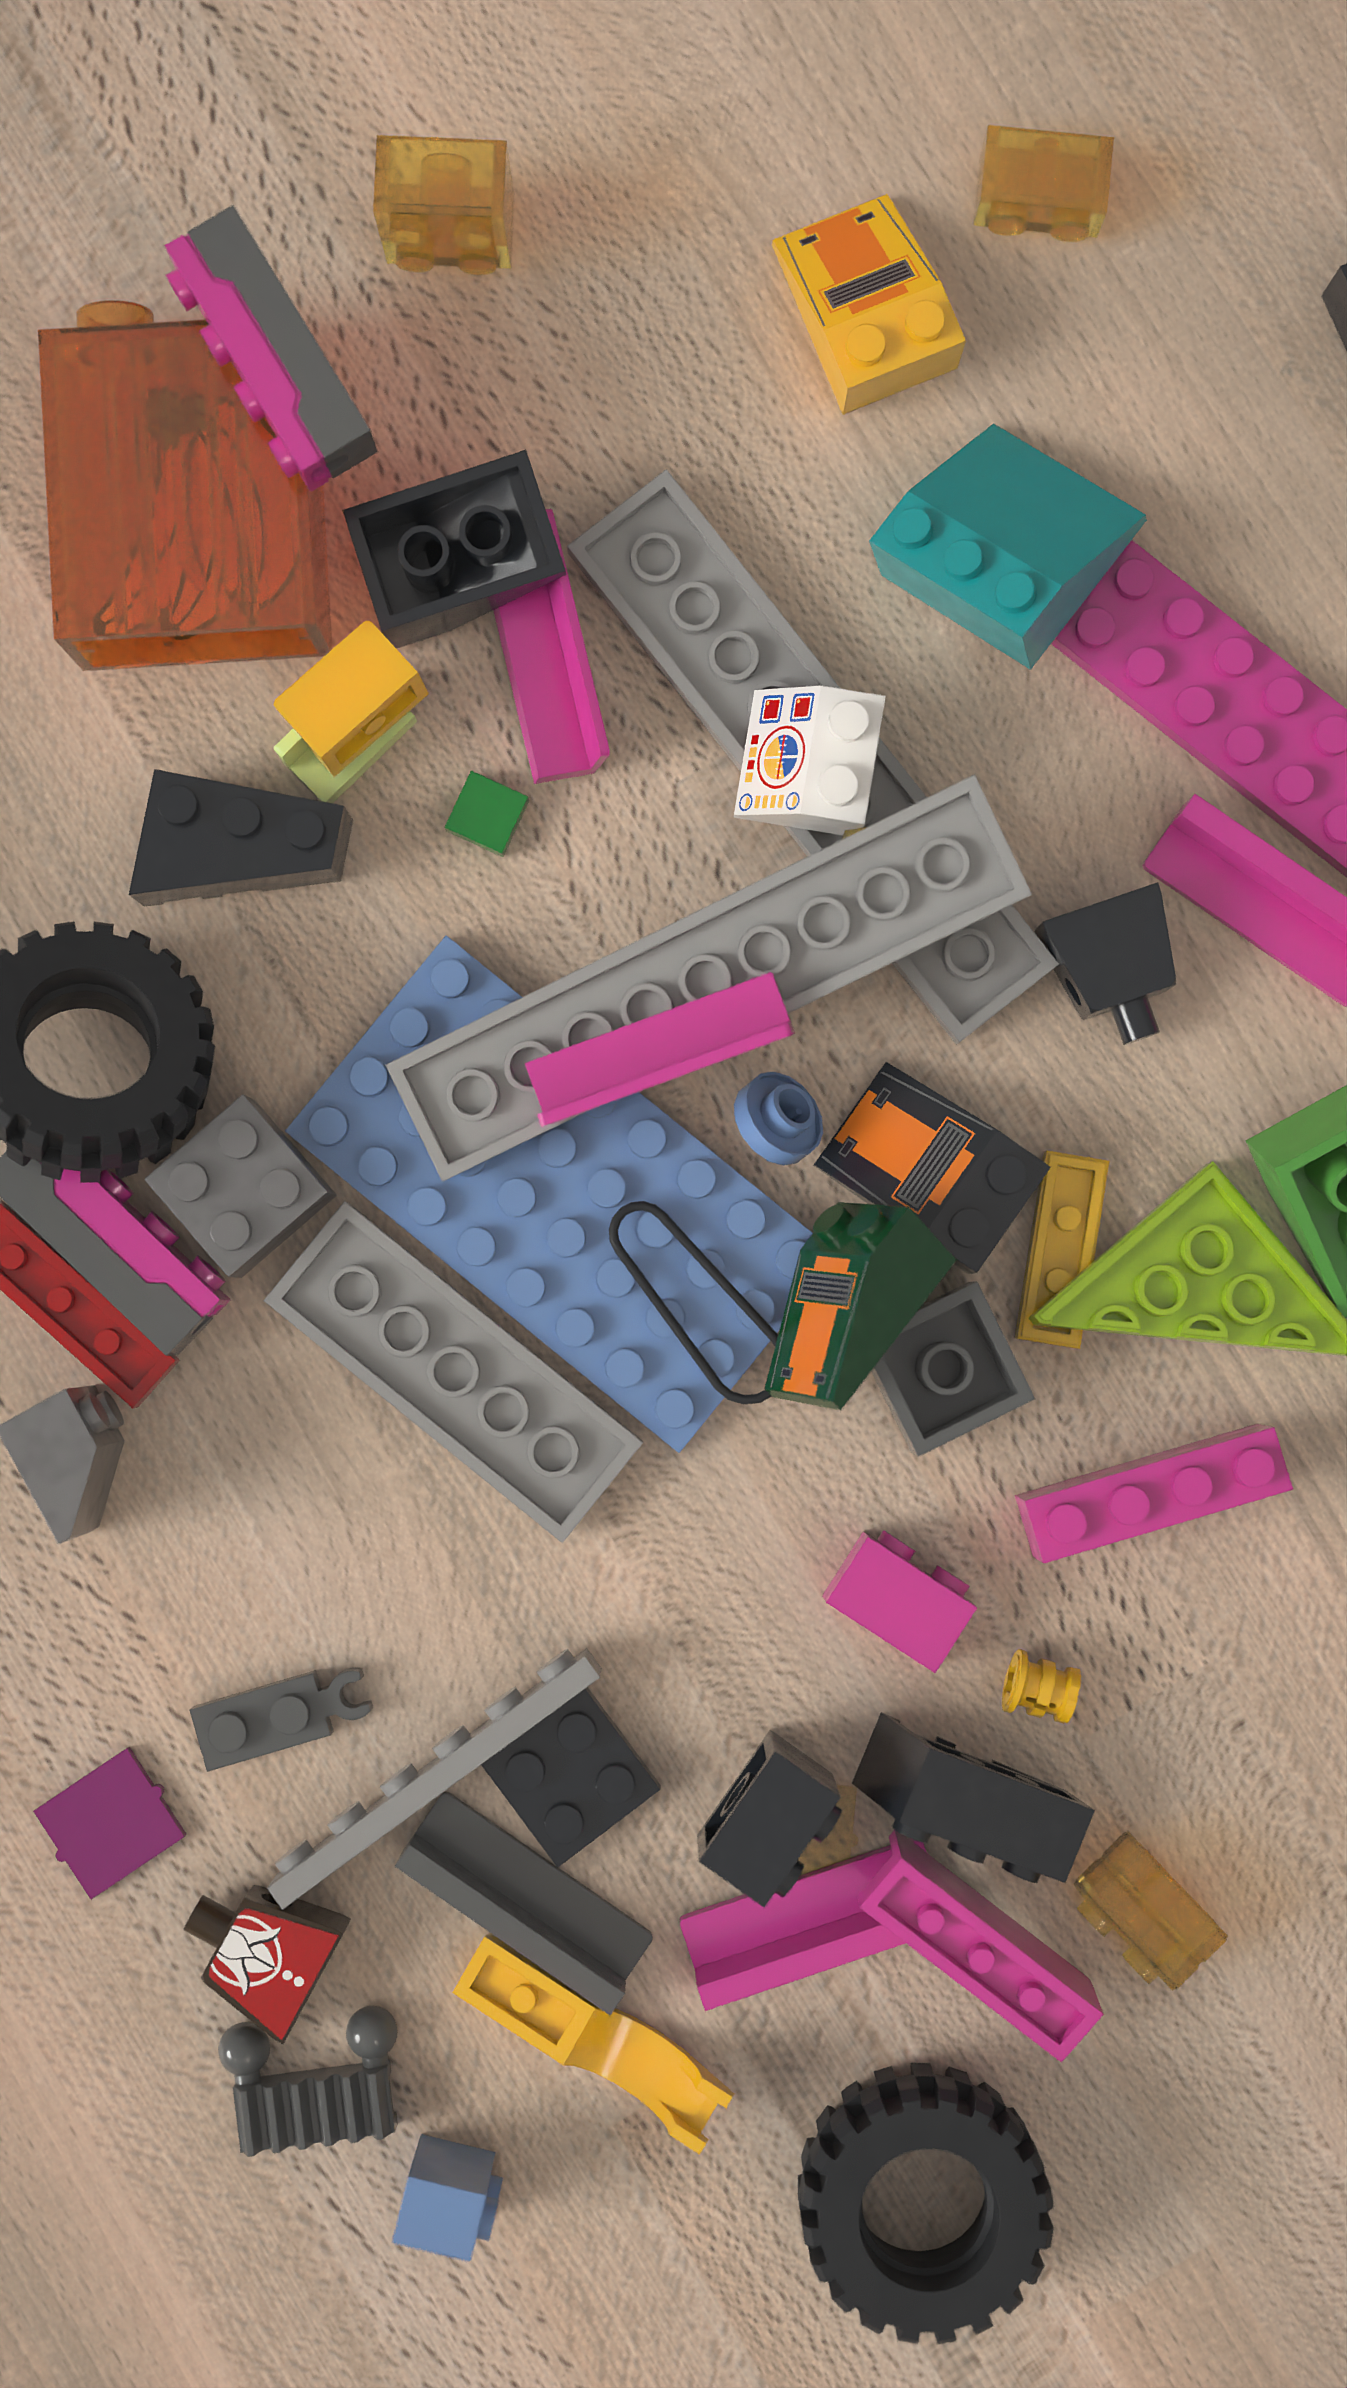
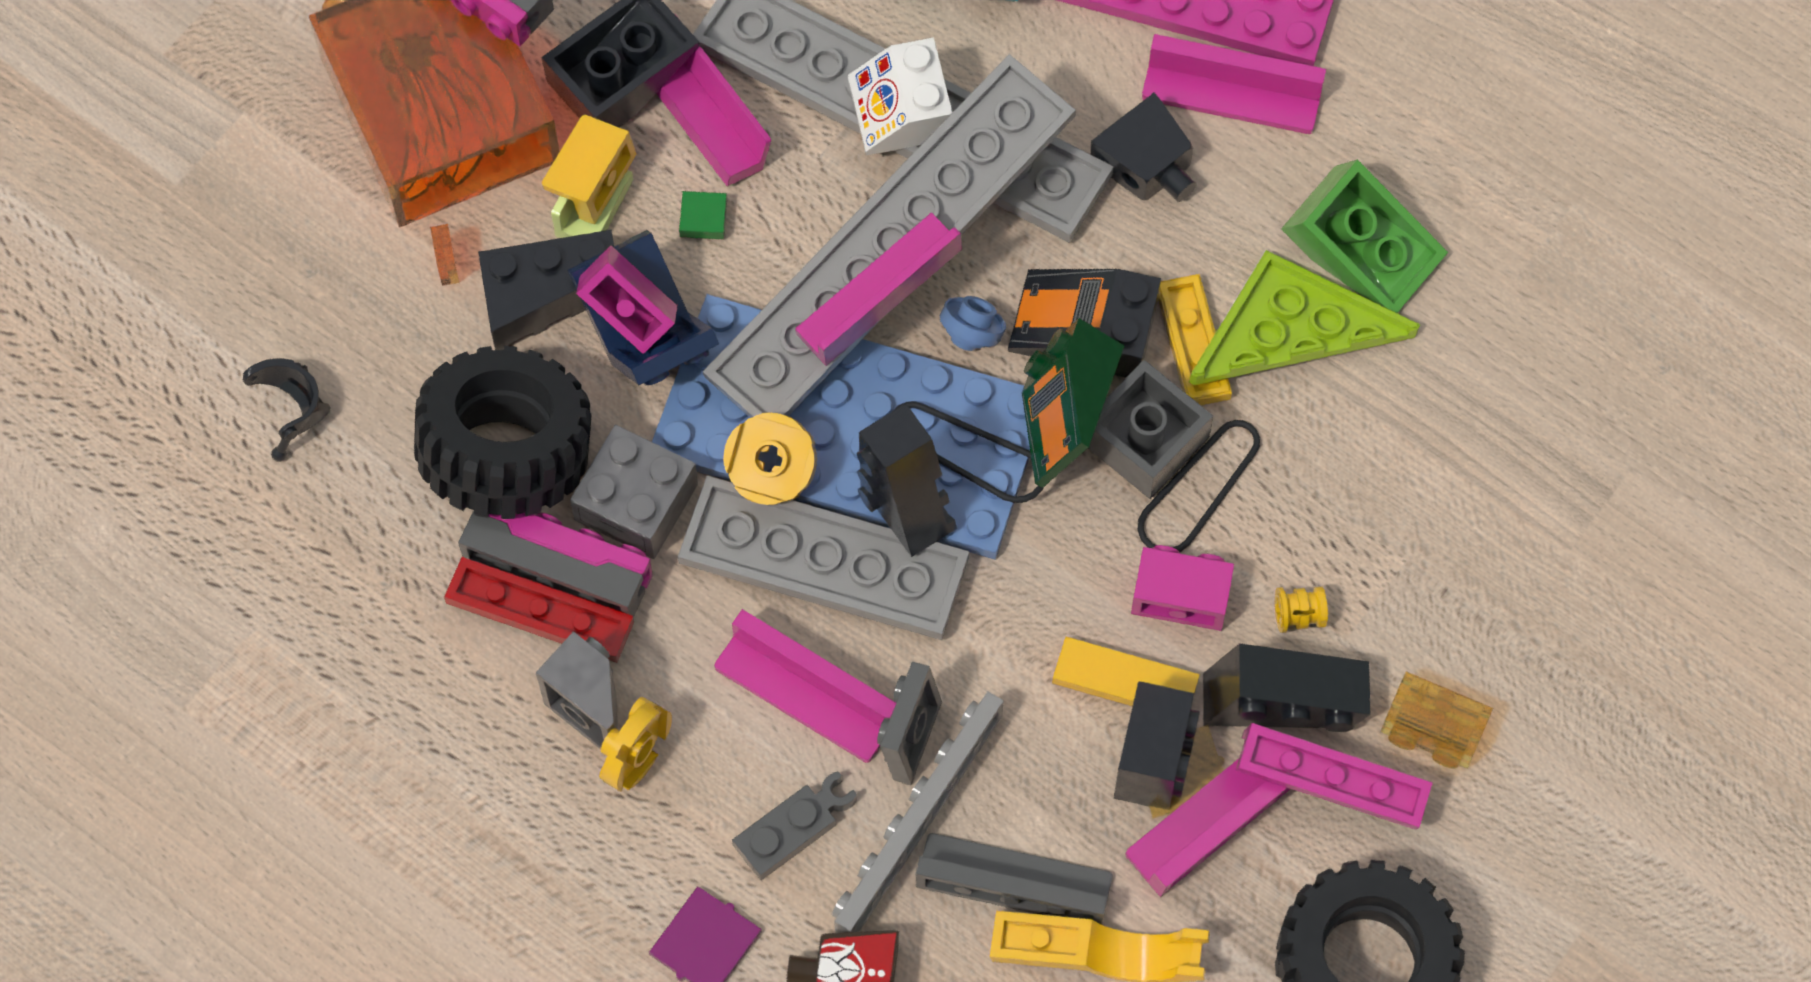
camera: 20 degrees left, 20 degrees down
(105, 1552) = (630, 749): none -> yellow plate
(120, 743) = (444, 254): none -> clear orange tile
(314, 933) = (627, 299): none -> dark pink brick
(346, 970) = (683, 343): none -> dark blue bracket
(363, 1540) = (804, 686): none -> dark pink panel
(461, 1216) = (748, 473): none -> yellow plate
(482, 1641) = (911, 723): none -> dark grey plate
(572, 1776) = (1010, 787): black plate -> none
(582, 1347) = (900, 478): none -> black wedge
(777, 1687) = (1114, 673): none -> yellow tile
(999, 1485) = (1256, 444): none -> black piece
(1153, 1492) = (1317, 458): dark pink brick -> none

